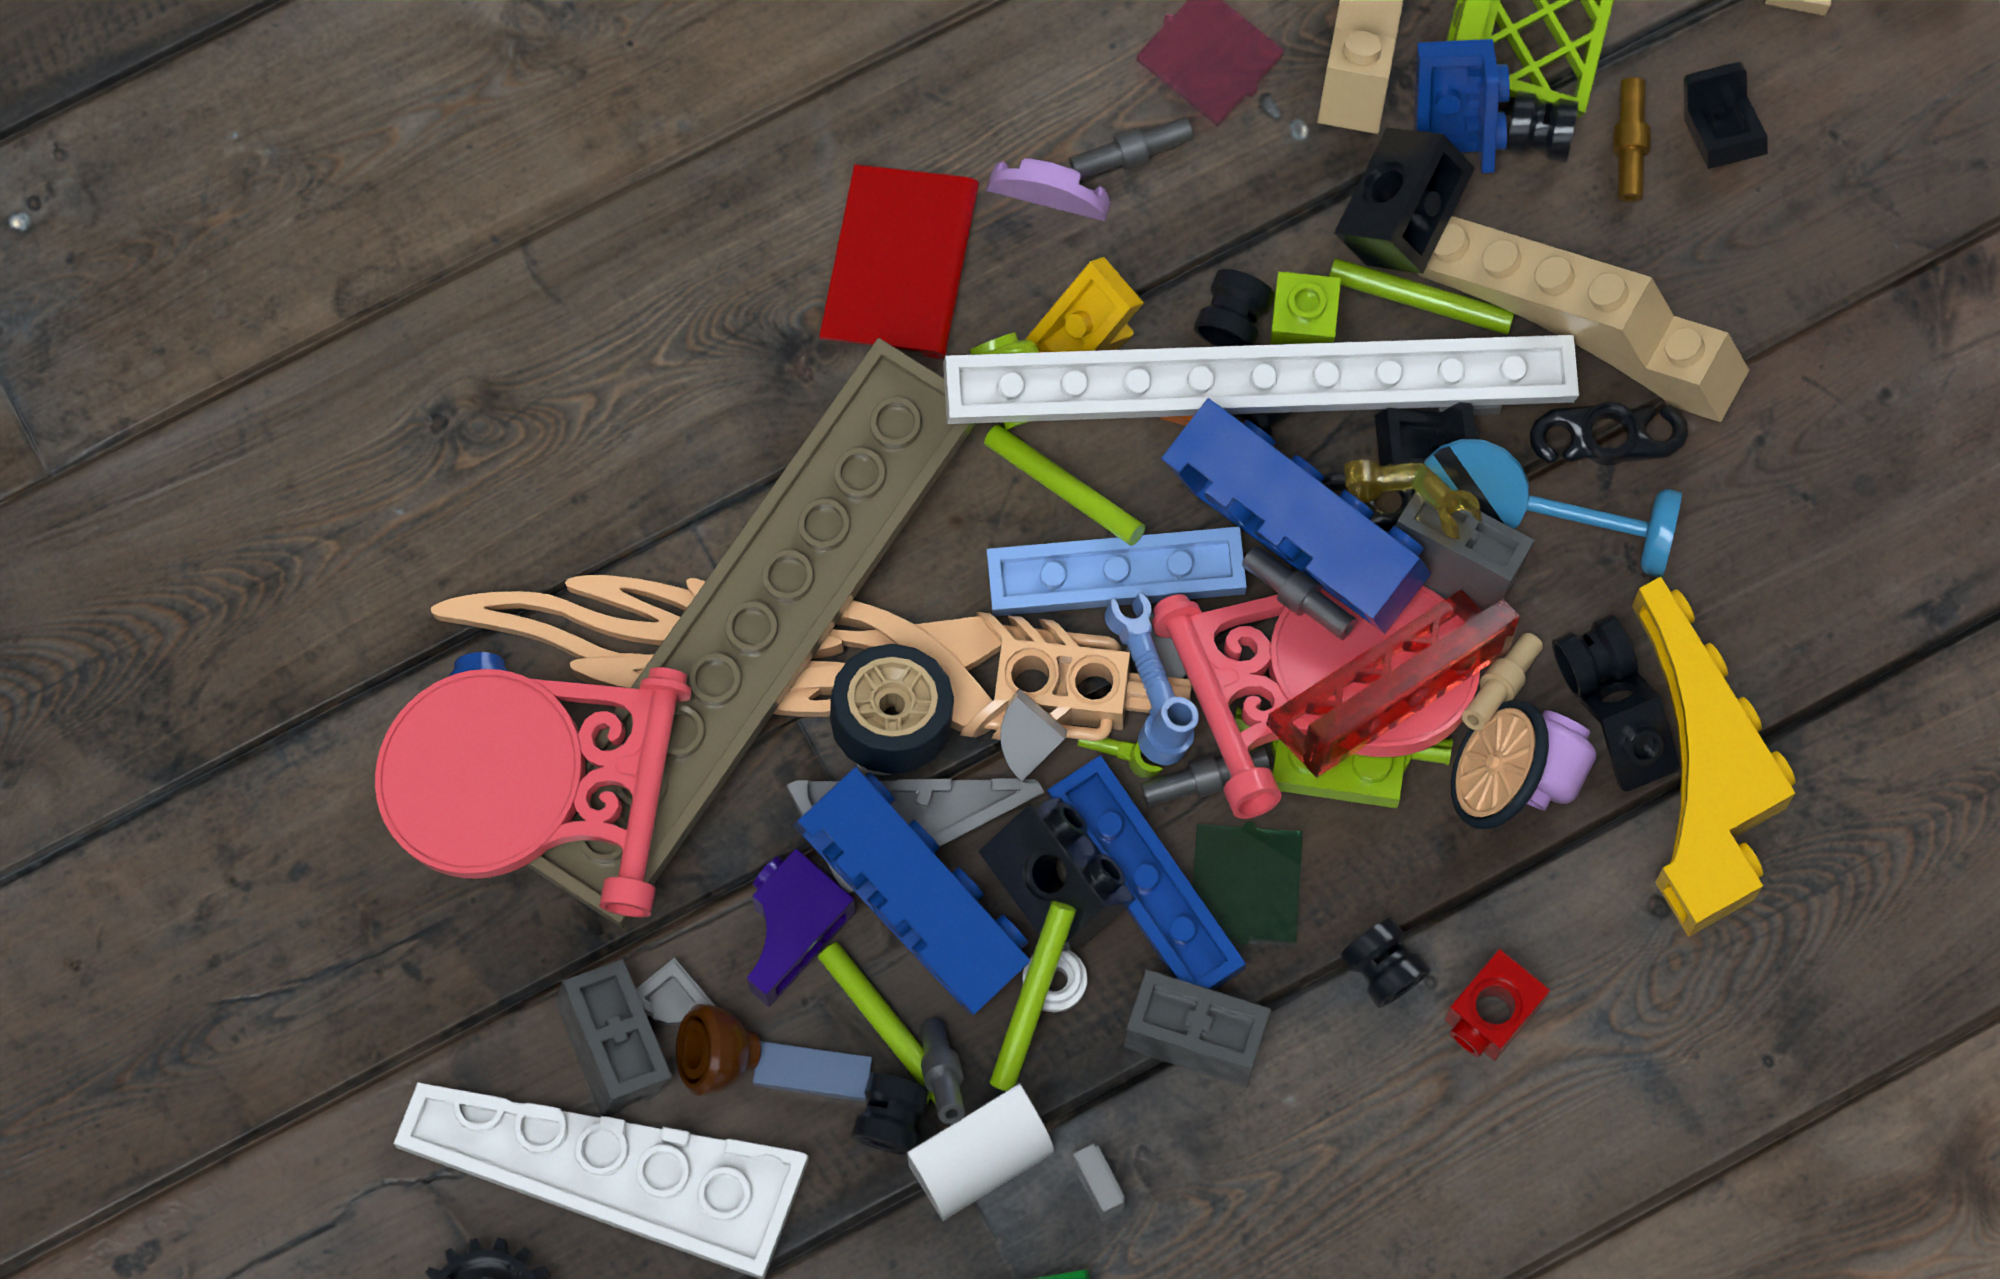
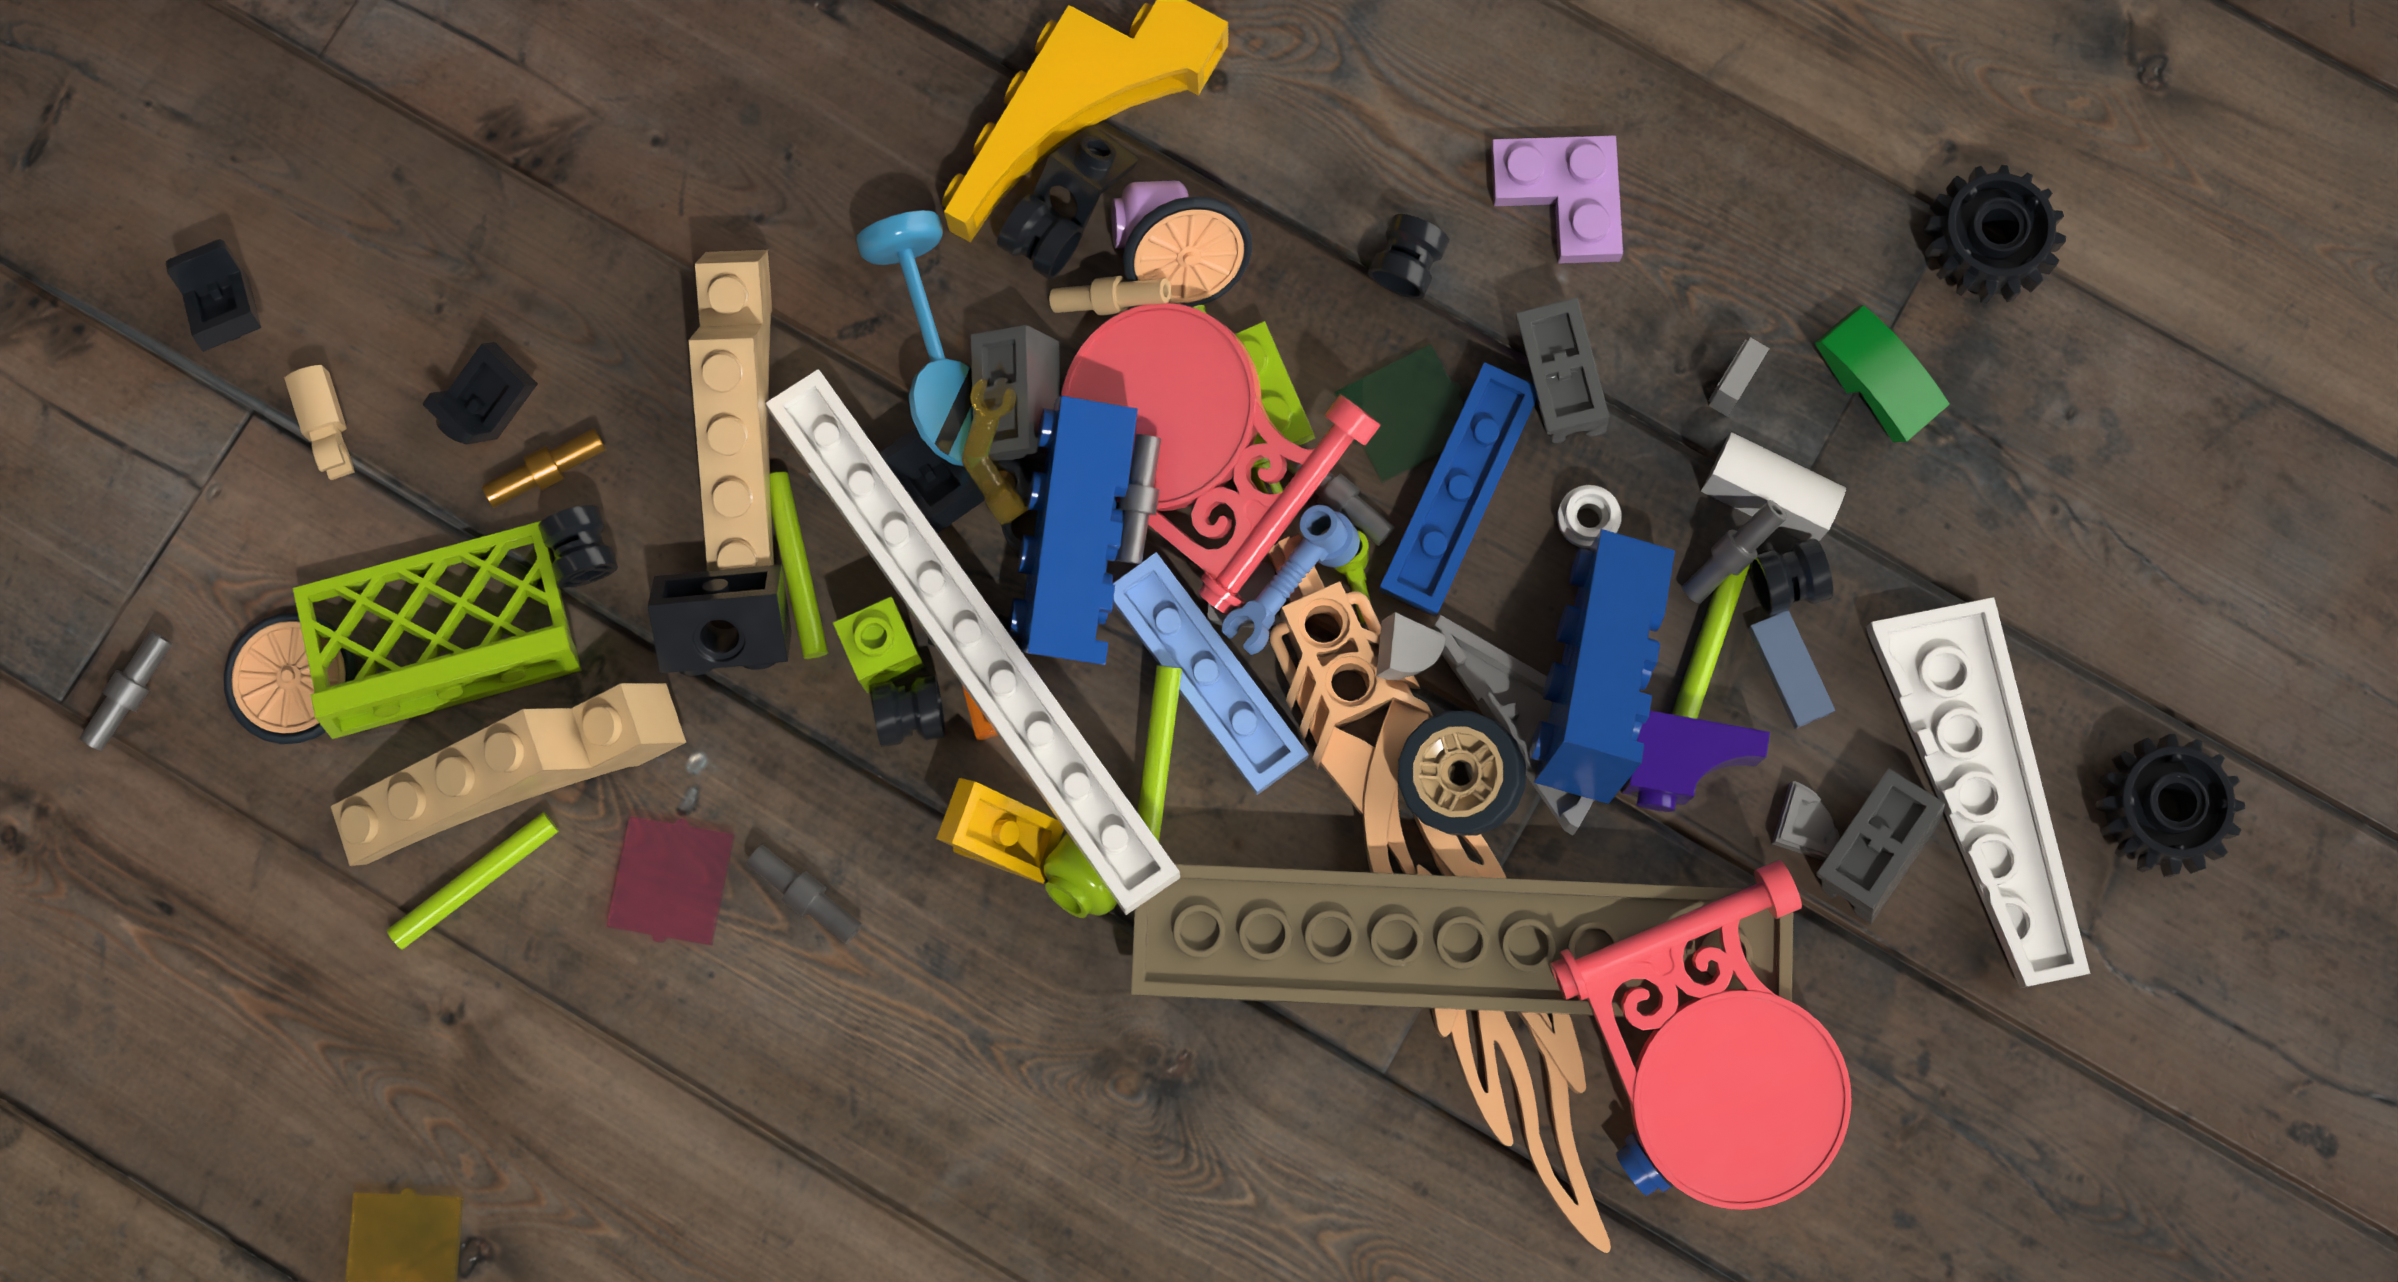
camera: 120 degrees left, 5 degrees up
(714, 1049) = (1836, 754): reddish brown brick -> none
(899, 259) = (1029, 1039): red piece -> none
(1026, 861) = (1535, 537): black brick -> none
(1032, 996) = (1624, 514): lime bar -> none
(1049, 186) = (885, 946): lavender tile -> none
(1369, 1165) = (1574, 176): none -> lavender plate
(1394, 693) = (1176, 346): clear red fence -> none
(1460, 96) = (596, 618): blue bracket -> none
(1503, 980) = (1383, 125): red brick -> none
(1636, 448) = (829, 311): black piece -> none

